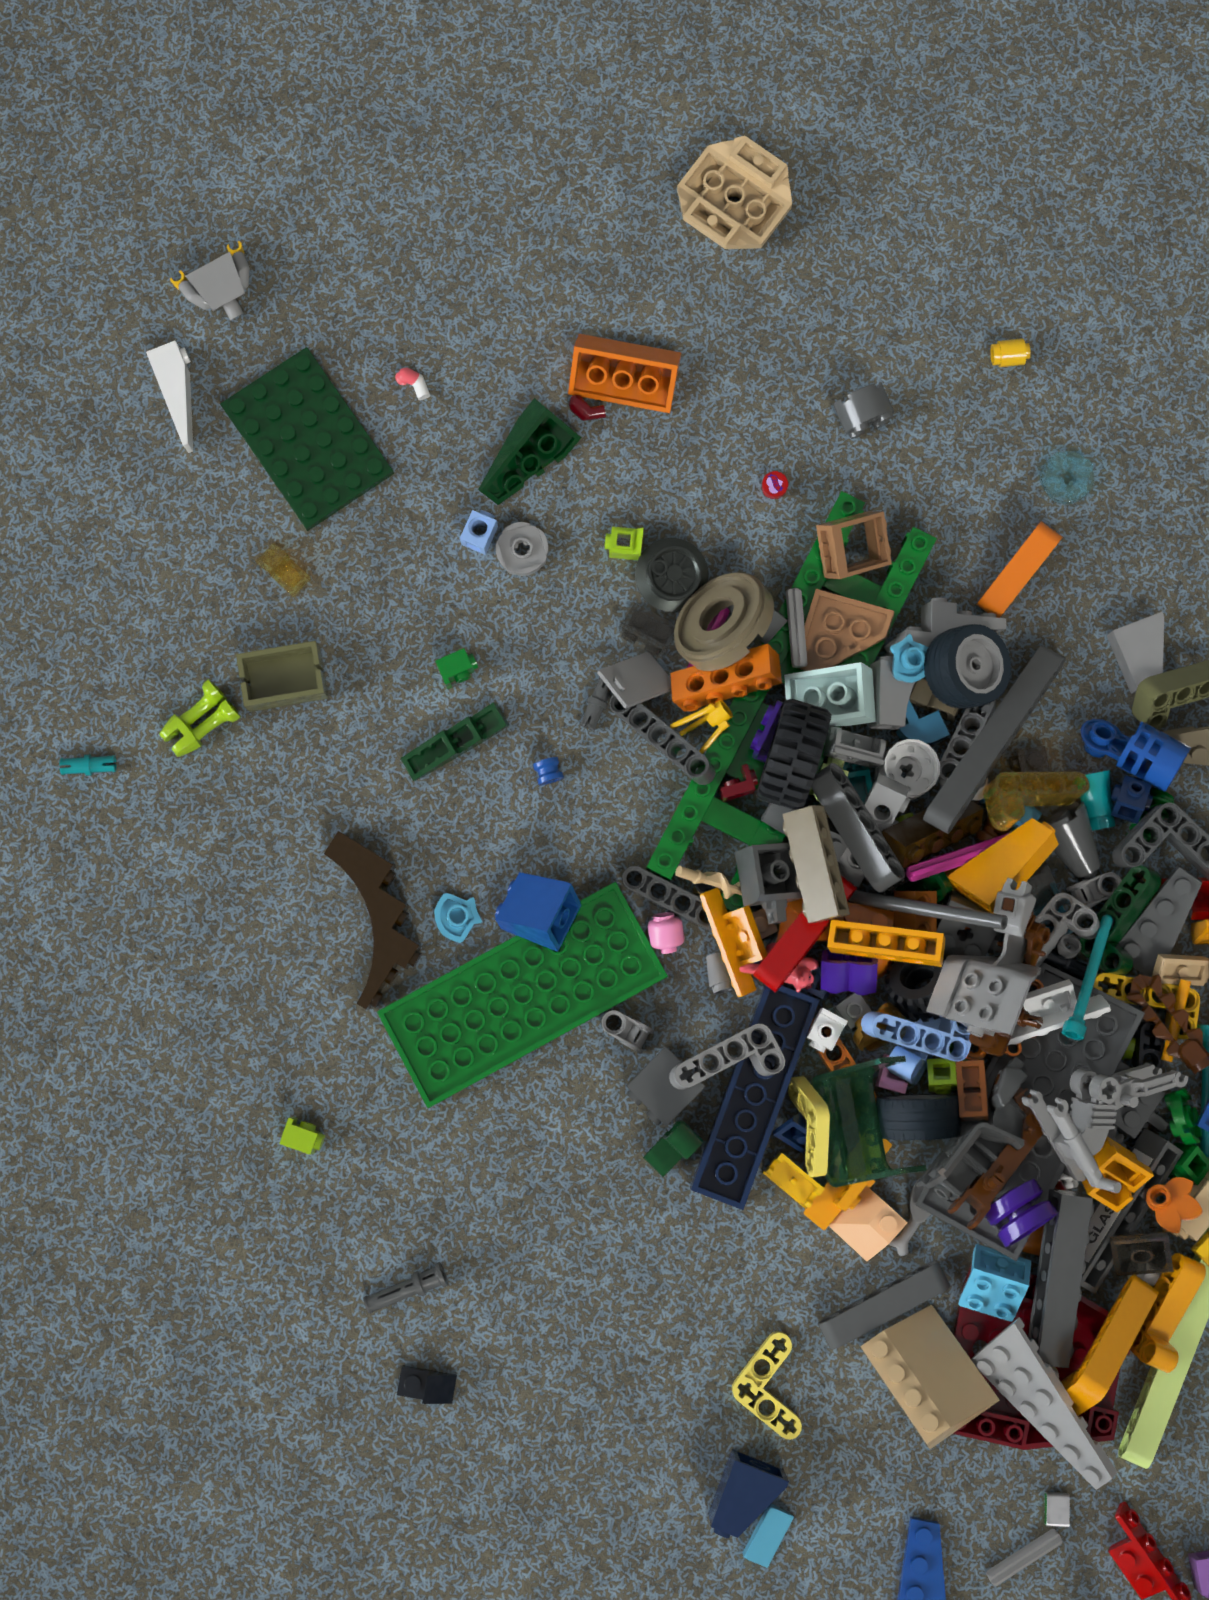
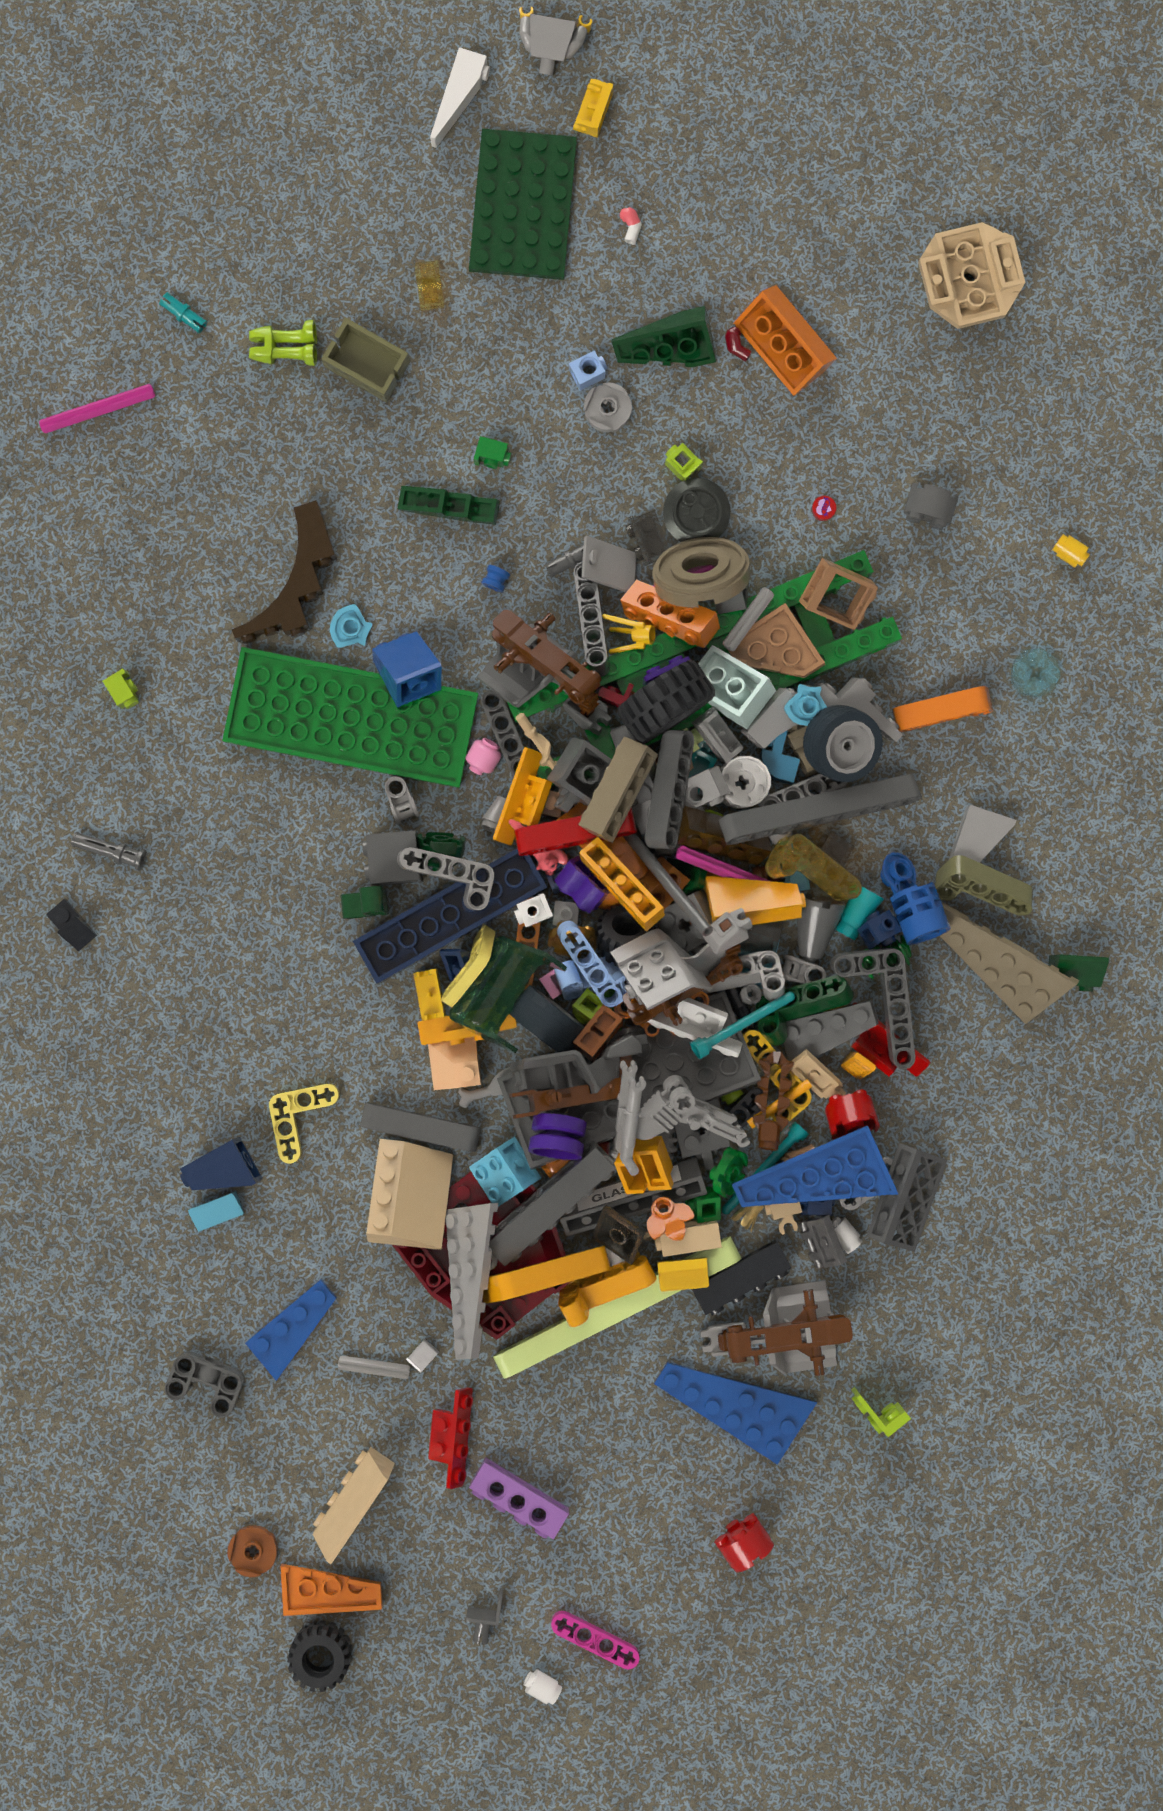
camera: 35 degrees right, 5 degrees up
(78, 909) = (96, 408): none -> dark pink axle
(300, 311) = (594, 108): none -> yellow hinge
(644, 816) = (531, 660): none -> piece
(696, 1039) = (443, 844): none -> dark green cylinder

